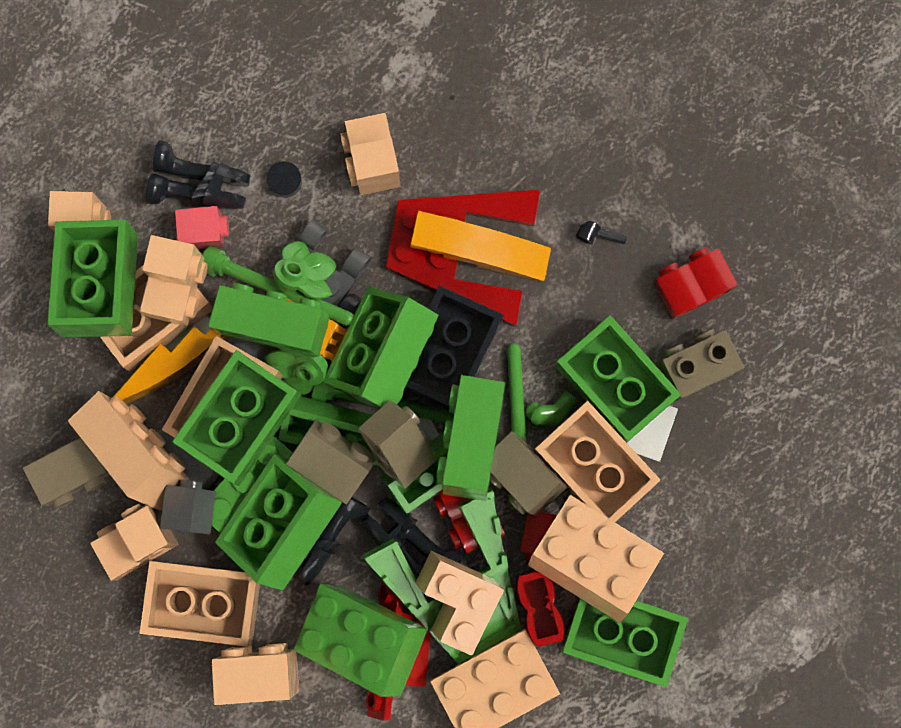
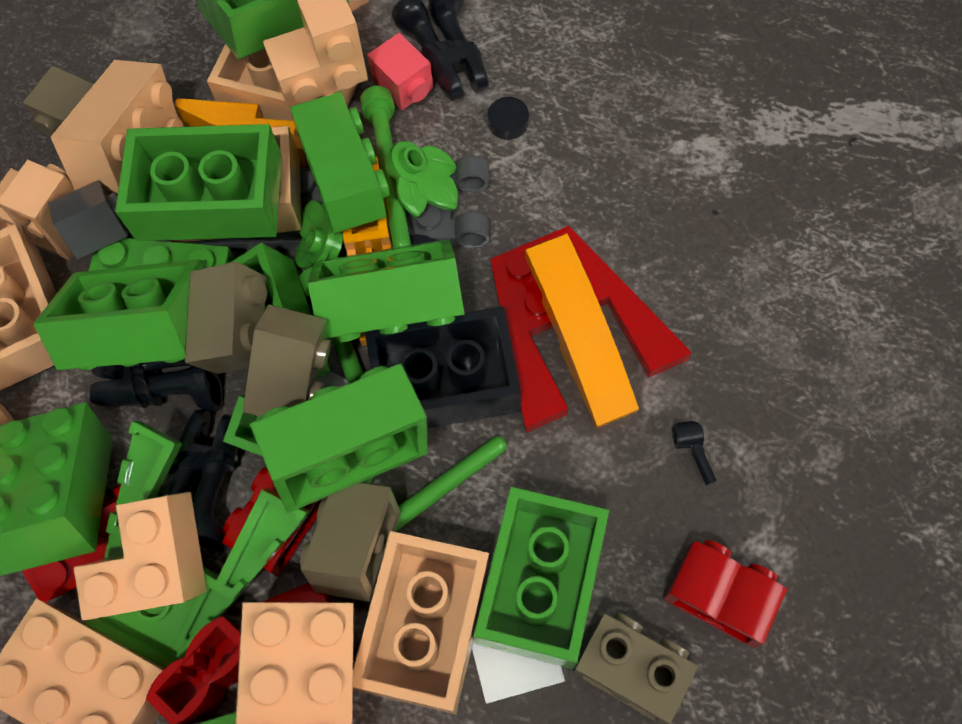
camera: 60 degrees right, 15 degrees down
(373, 155) = (591, 167): light nougat brick -> none
(551, 414) = (450, 530): bright green arm -> none

